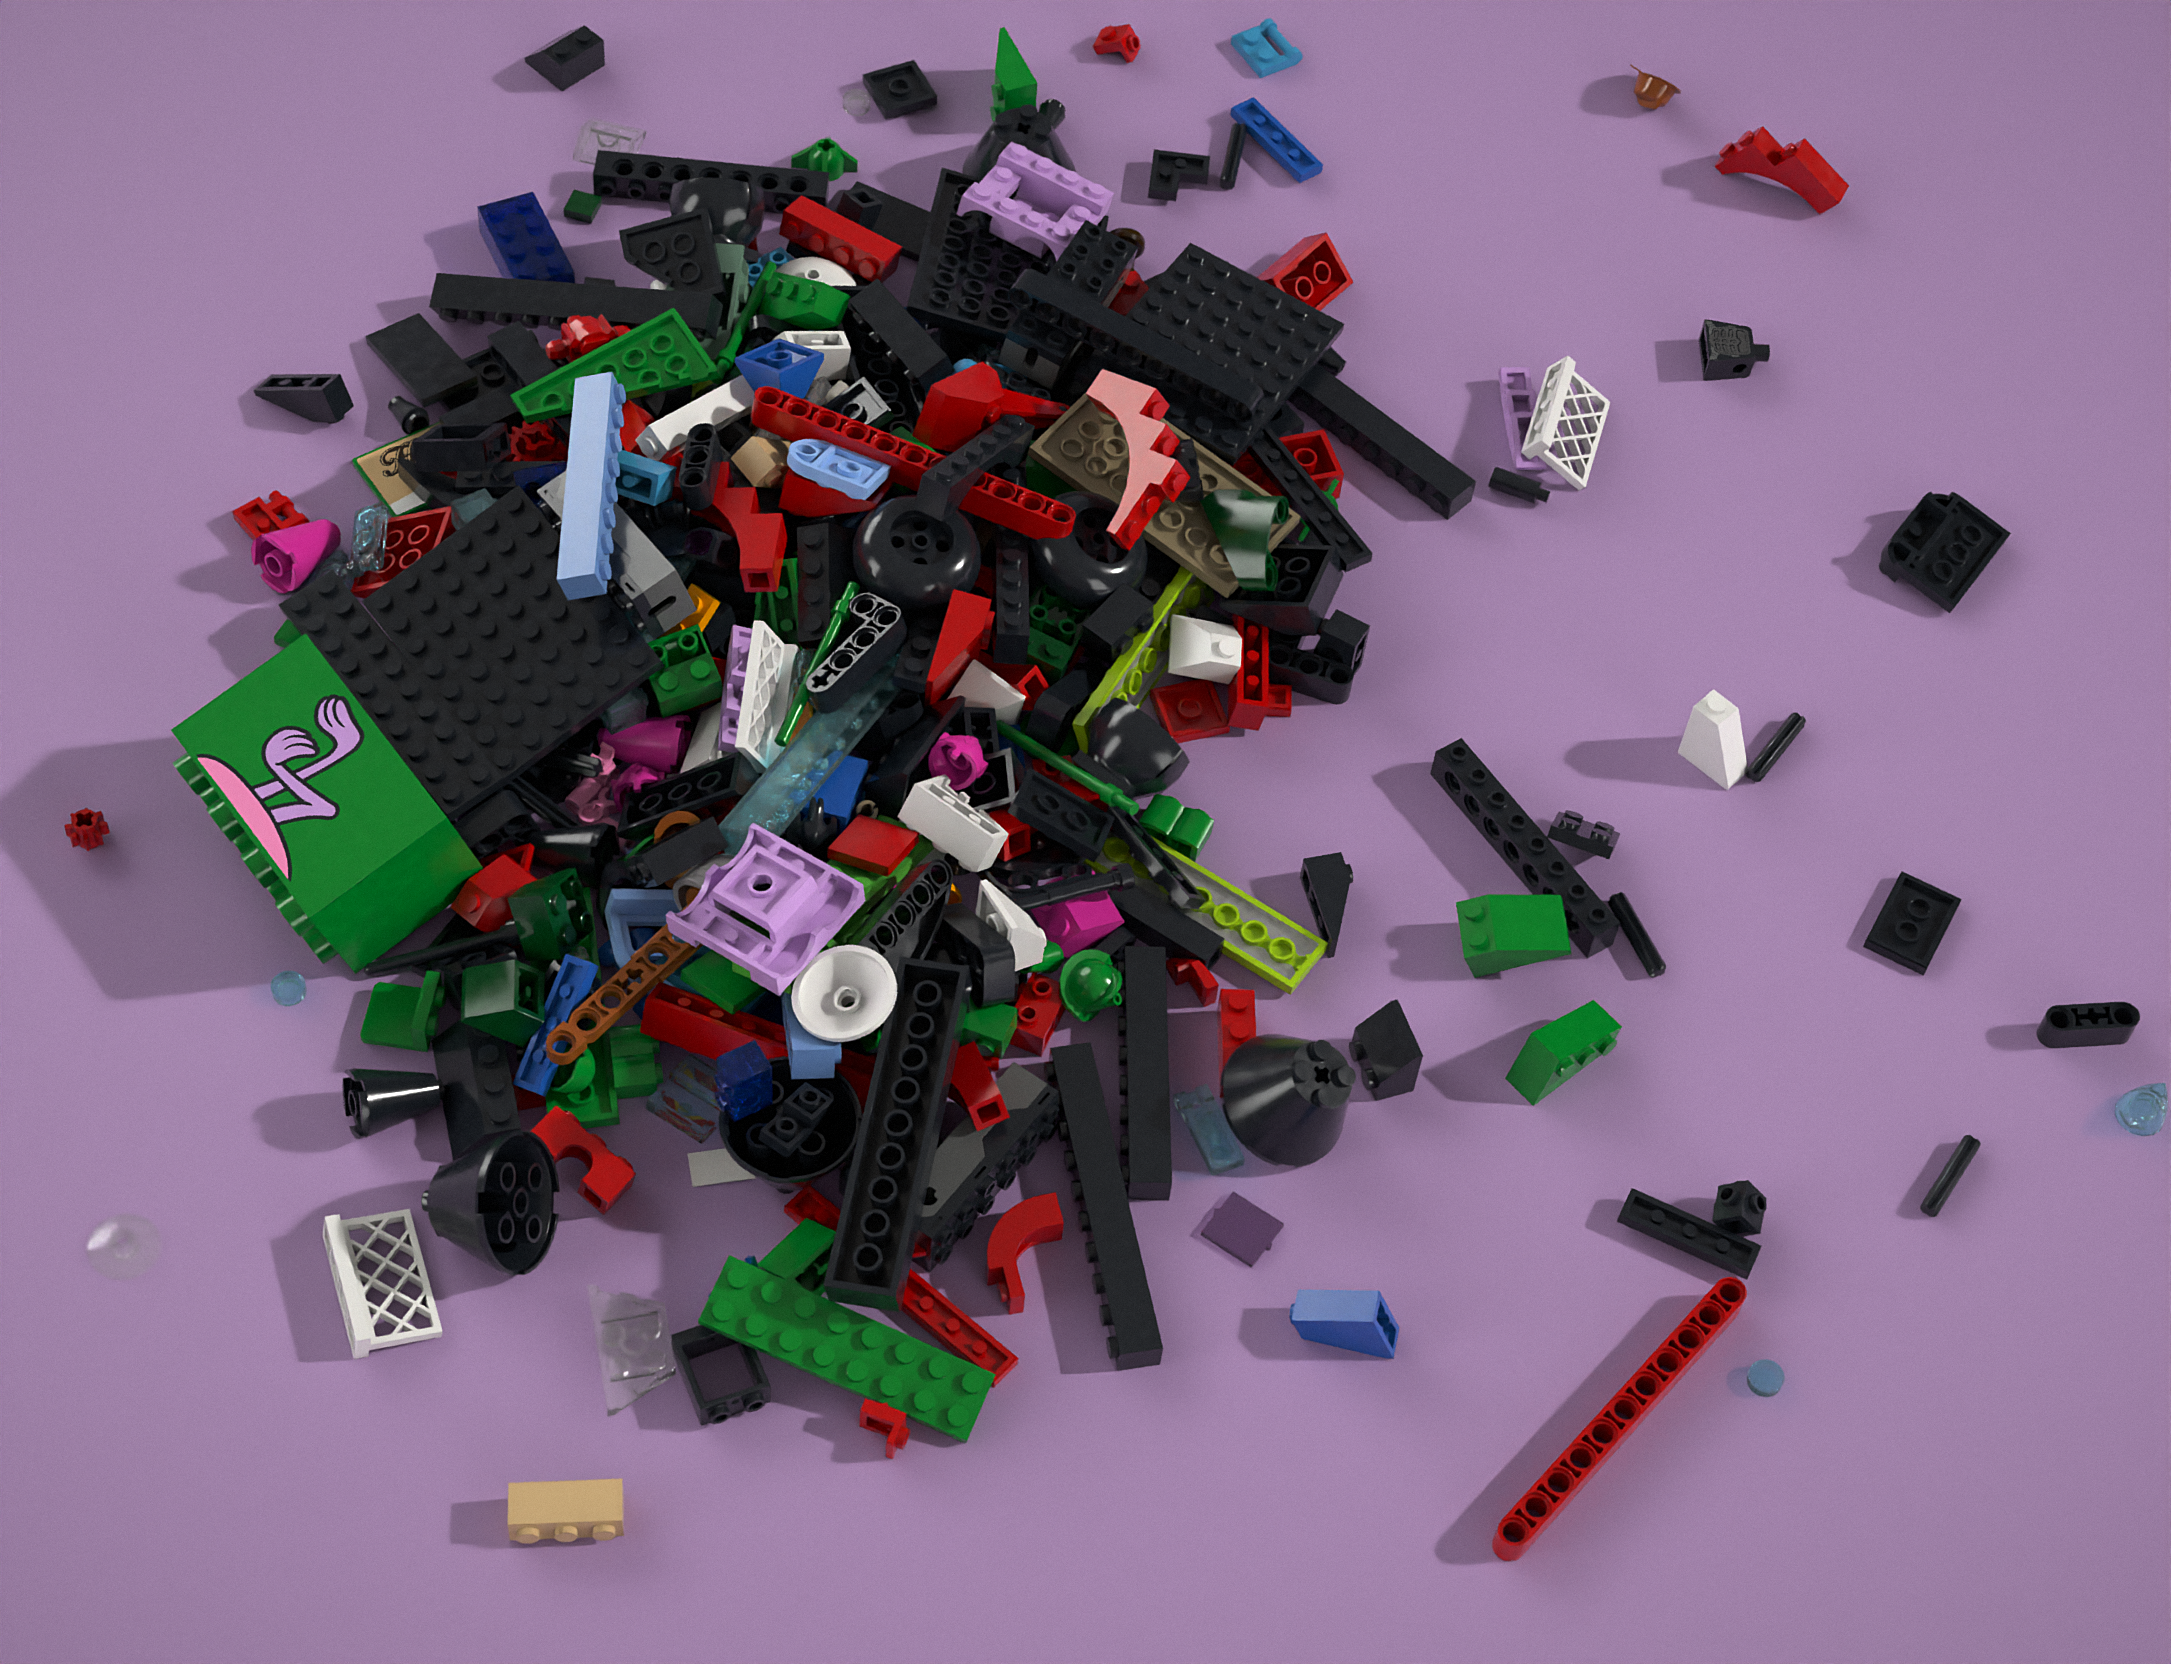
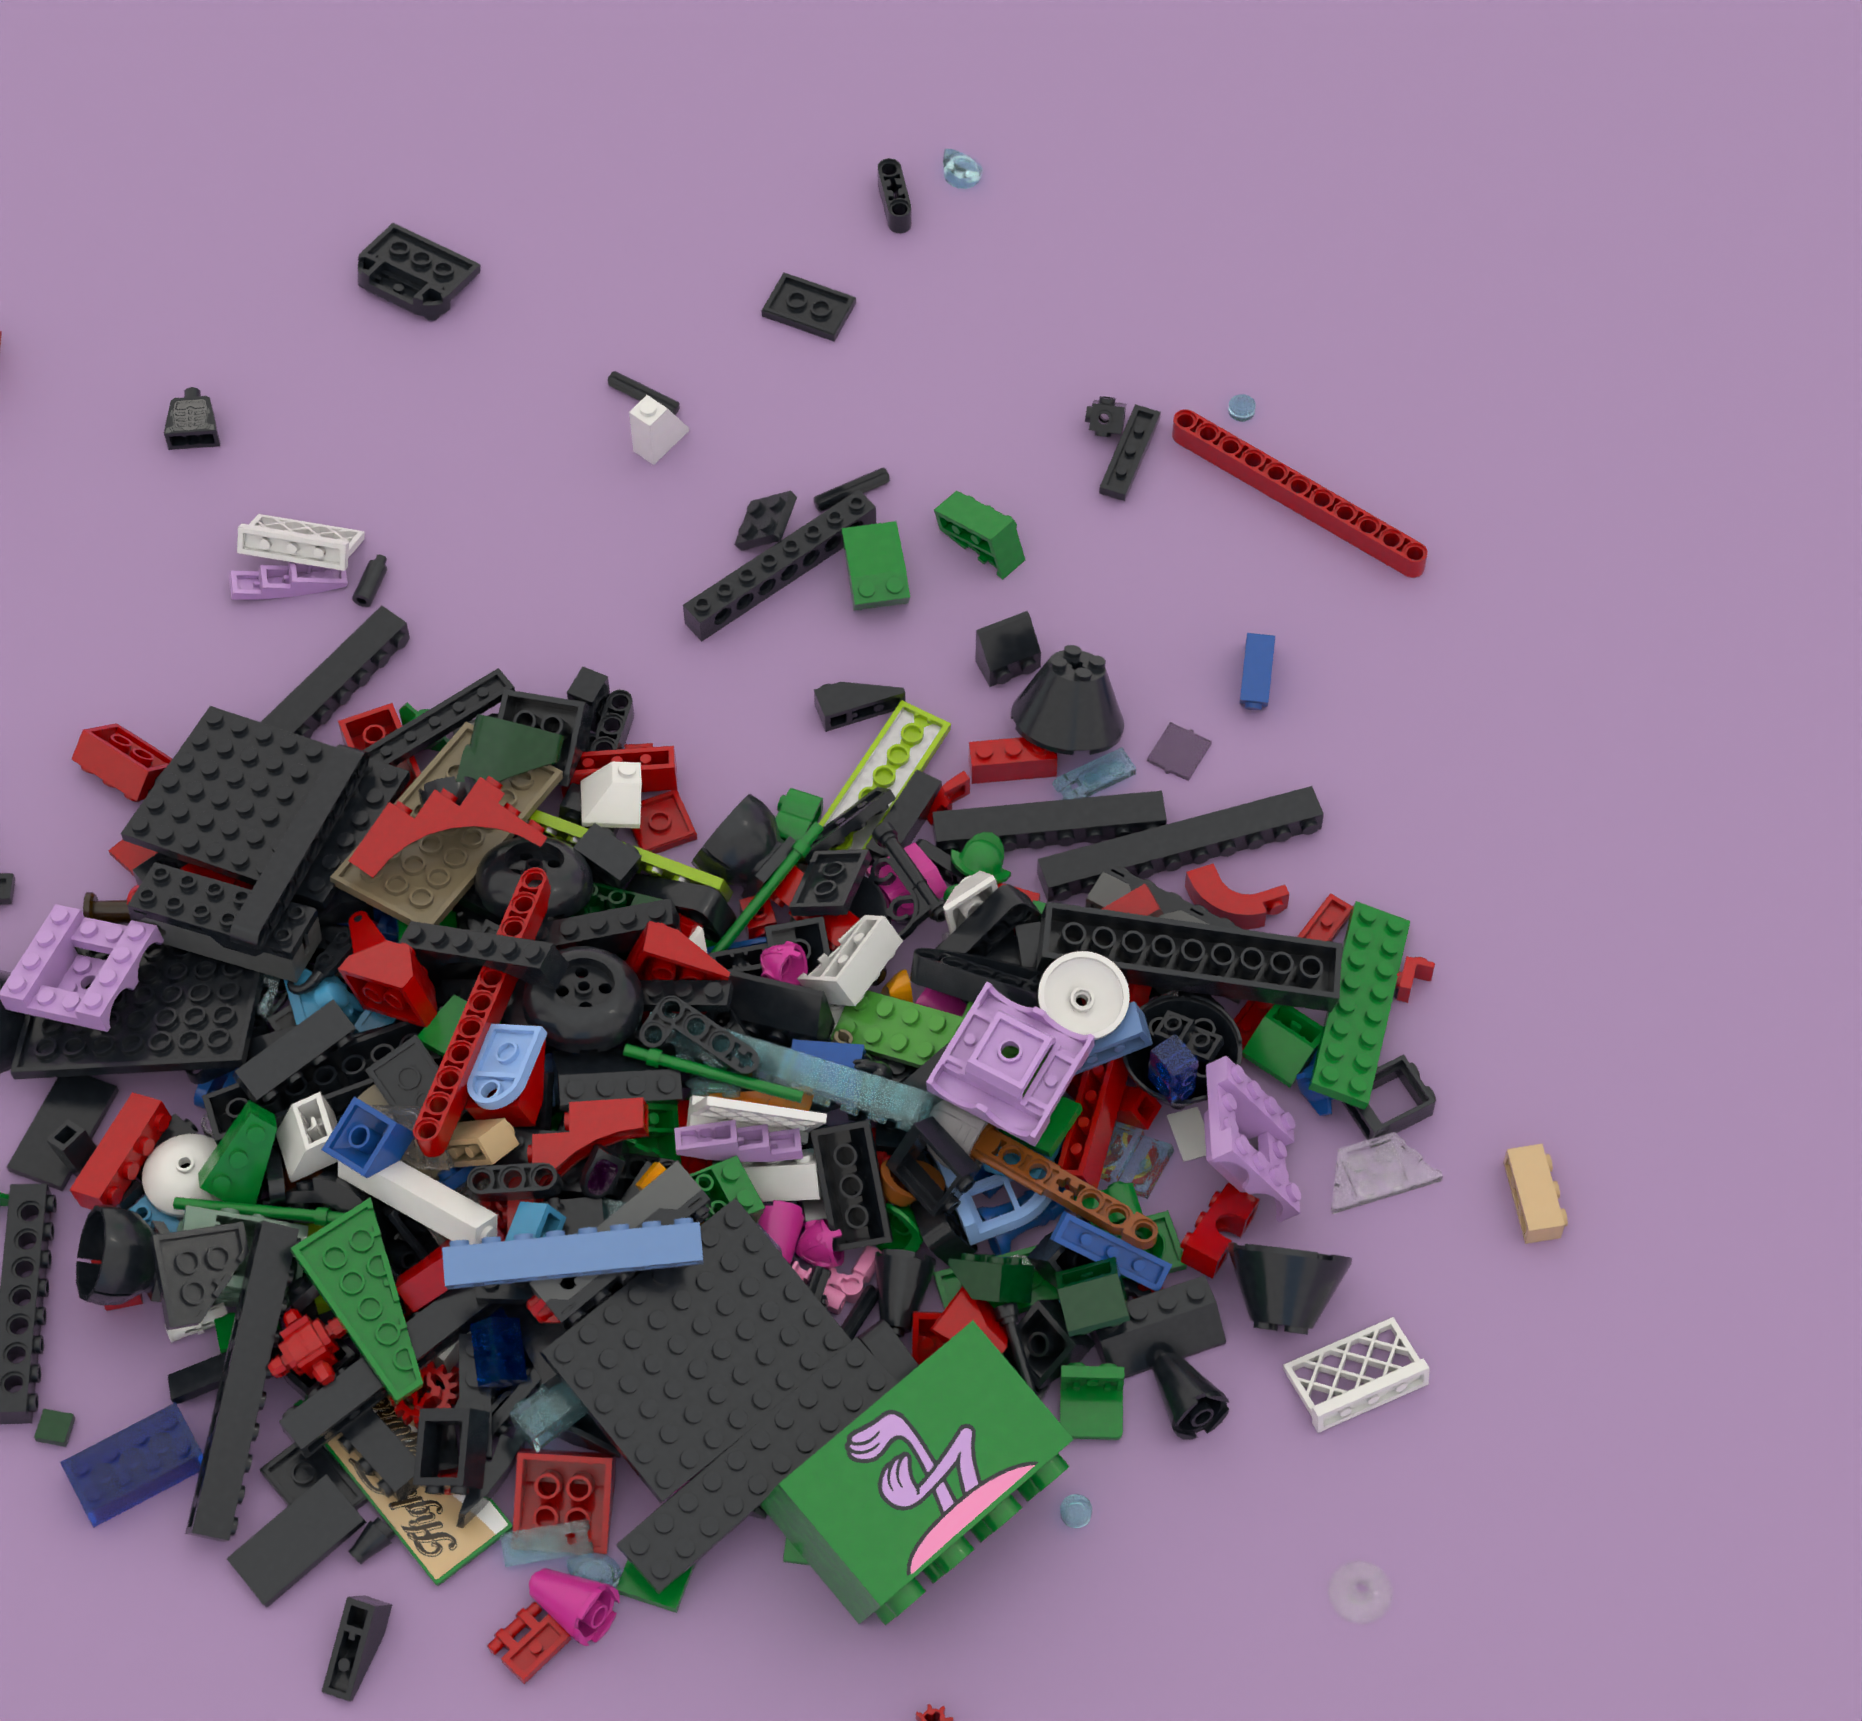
camera: 90 degrees left, 5 degrees up
(705, 1176) = (1238, 1113): none -> lavender piece
(873, 845) = (888, 1022): red tile -> none
(1950, 1176) = (1044, 289): black axle -> none

